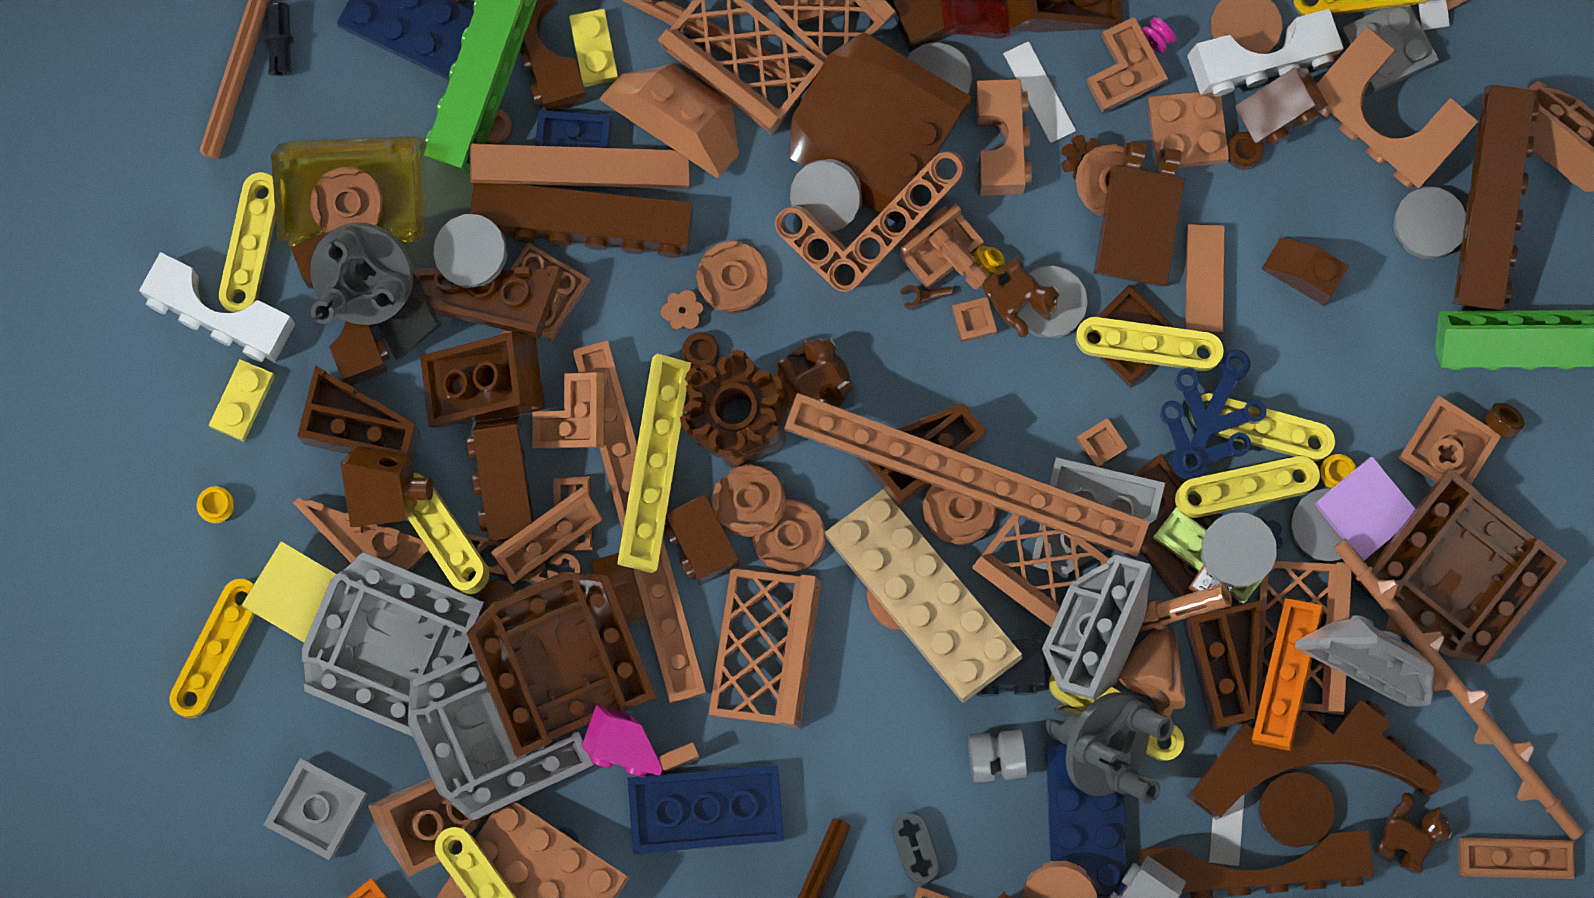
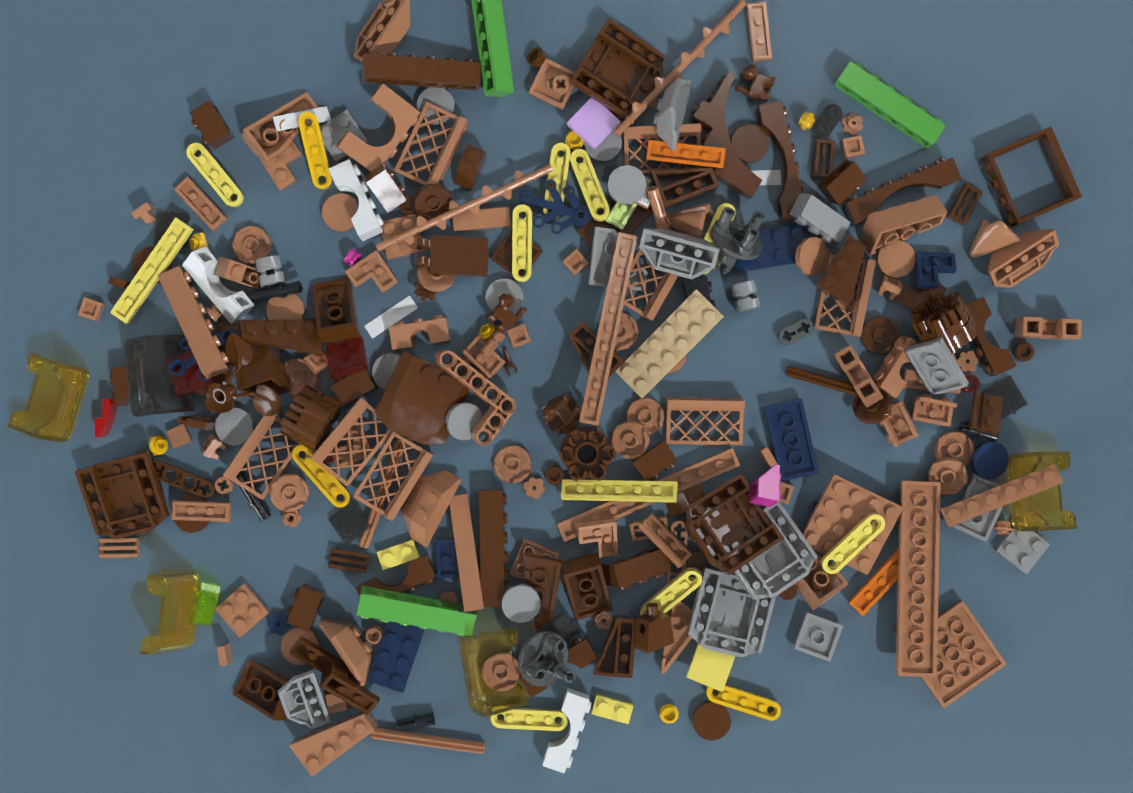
camera: 95 degrees left, 10 degrees up
(187, 583) = (711, 720): none -> reddish brown tile
(411, 764) = (789, 593): none -> reddish brown tile
(421, 407) = (604, 615): none -> nougat plate
(606, 782) = (786, 492): none -> nougat tile
(1231, 261) = (455, 209): none -> nougat plant
(1246, 190) = (432, 201): none -> reddish brown tile
(1343, 233) = (448, 149): none -> nougat fence

